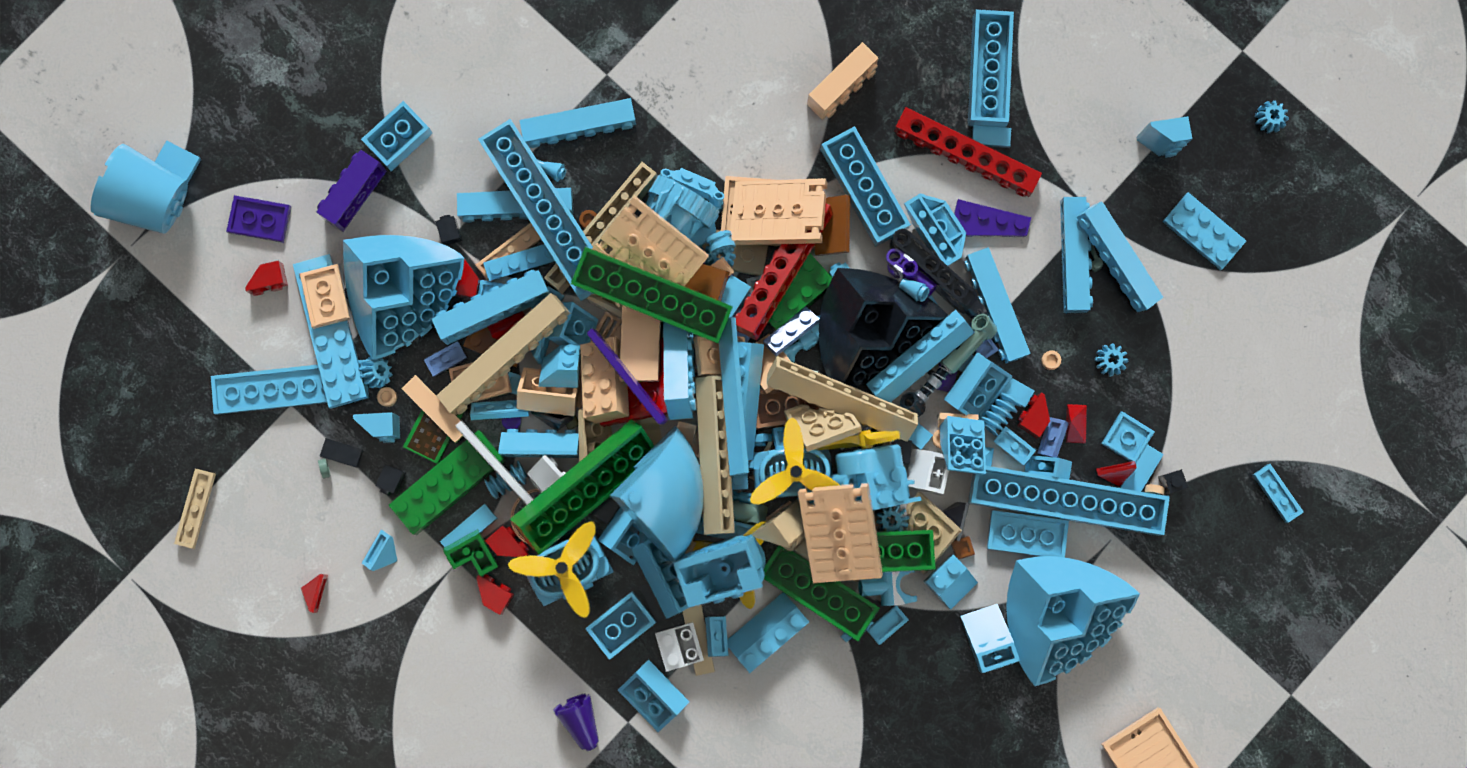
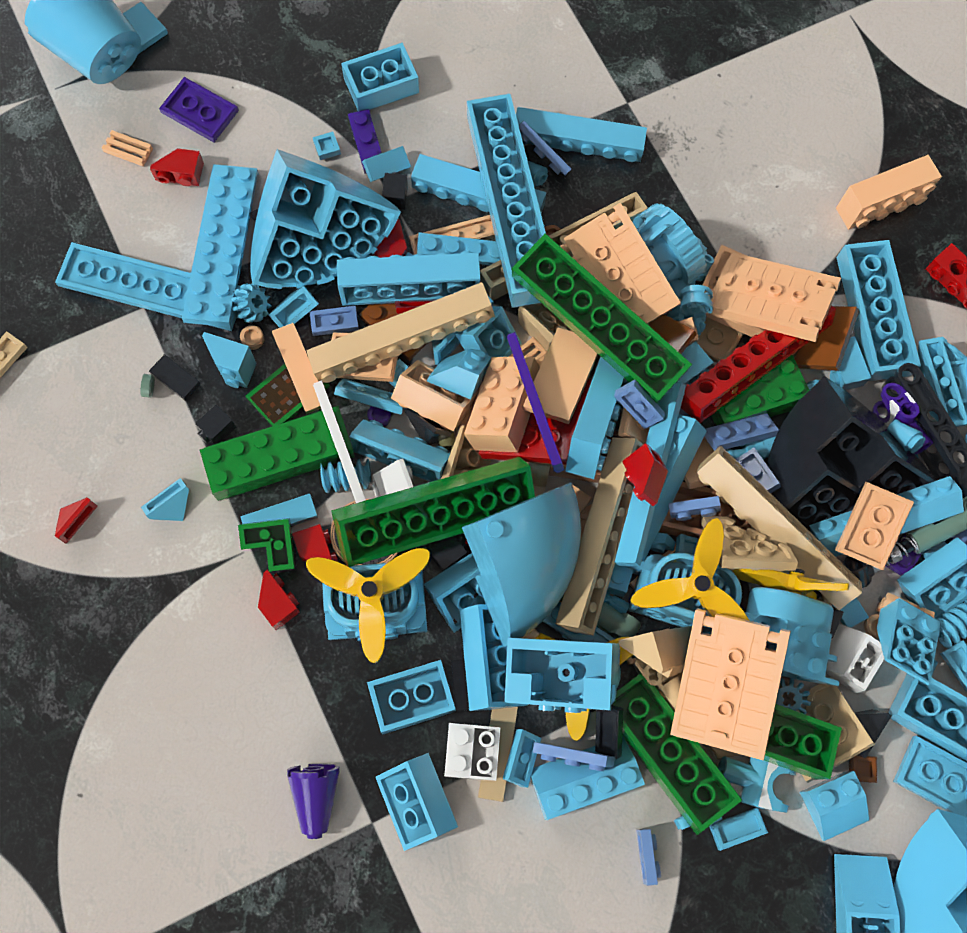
camera: 20 degrees right, 10 degrees down
(199, 275) = (112, 141): none -> light nougat tile
(325, 296) = (231, 205): light nougat tile -> none
(351, 190) = (308, 111): dark purple brick -> none
(377, 212) = (326, 145): none -> medium azure plate
(407, 194) = (364, 135): none -> dark purple plate
(409, 362) = (293, 307): none -> medium azure slope
(432, 210) = (387, 162): none -> medium azure tile
(554, 150) = (543, 149): none -> medium blue plate
(705, 348) = (639, 404): none -> medium blue plate
(729, 402) = (646, 472): none -> red slope
(752, 622) = (573, 756): none -> medium blue plate
(771, 595) = (609, 731): none -> black tile
(782, 405) = (704, 506): none -> medium blue plate
(813, 359) = (759, 470): none -> medium blue plate
(834, 676) = (650, 868): none -> medium blue plate
(860, 243) = (853, 369): none -> medium azure slope
(911, 371) = (874, 526): none -> light nougat tile

